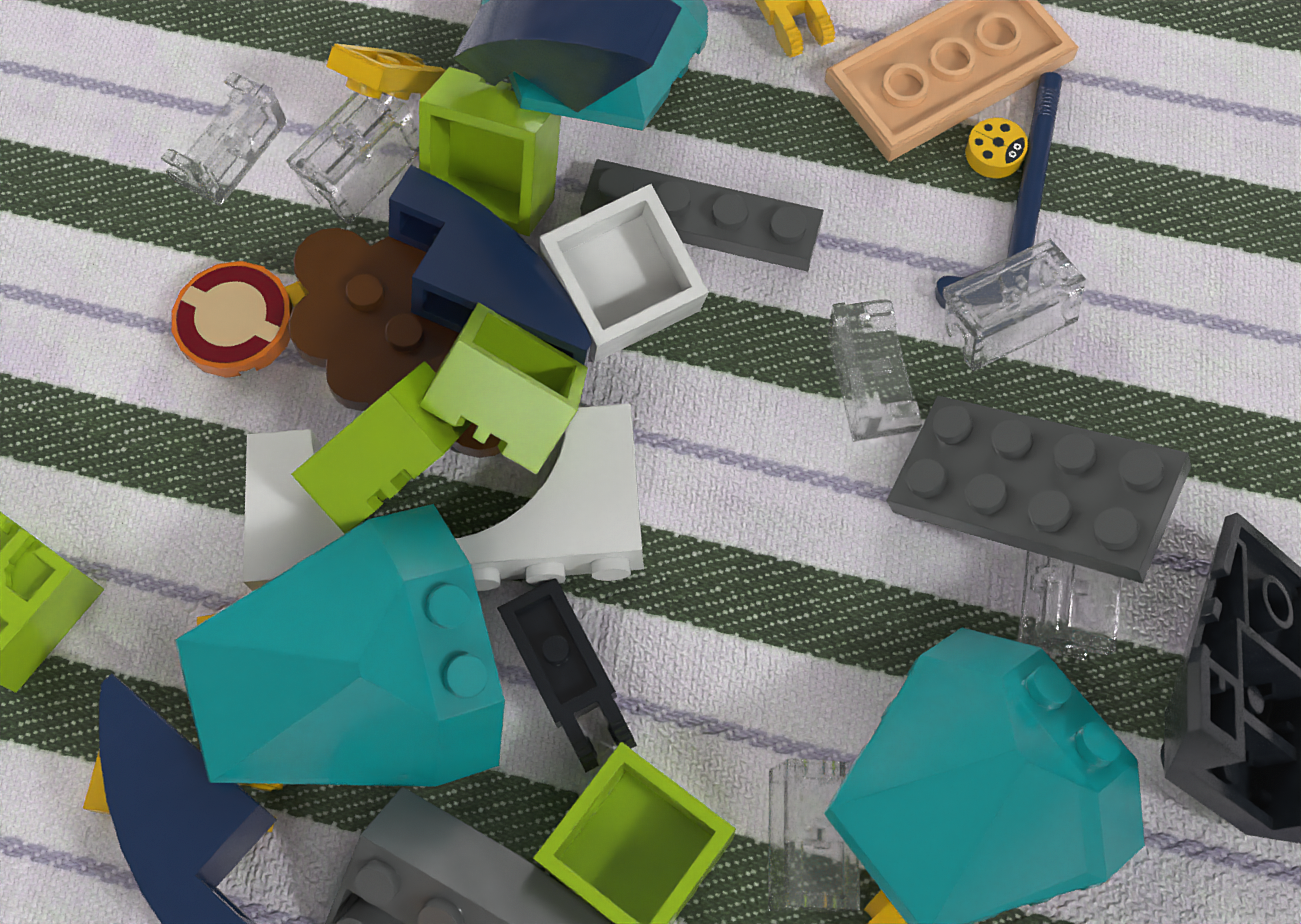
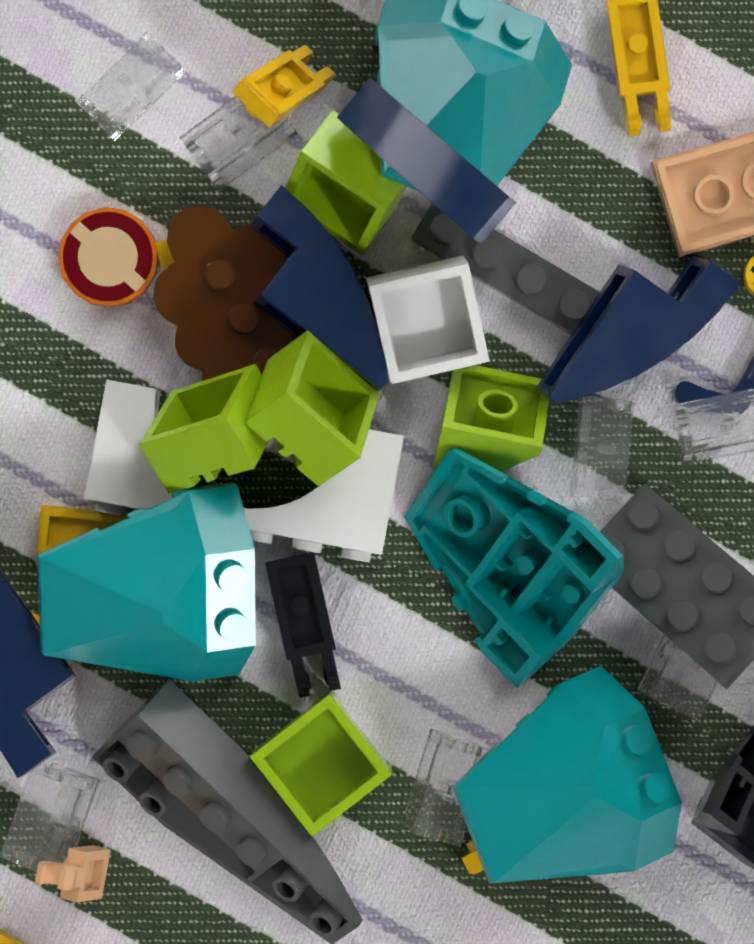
camera: 10 degrees right, 20 degrees up
(729, 375) = (493, 417): none -> lime slope
(815, 510) = (514, 561): none -> teal wedge
(866, 221) = (635, 328): none -> dark blue slope

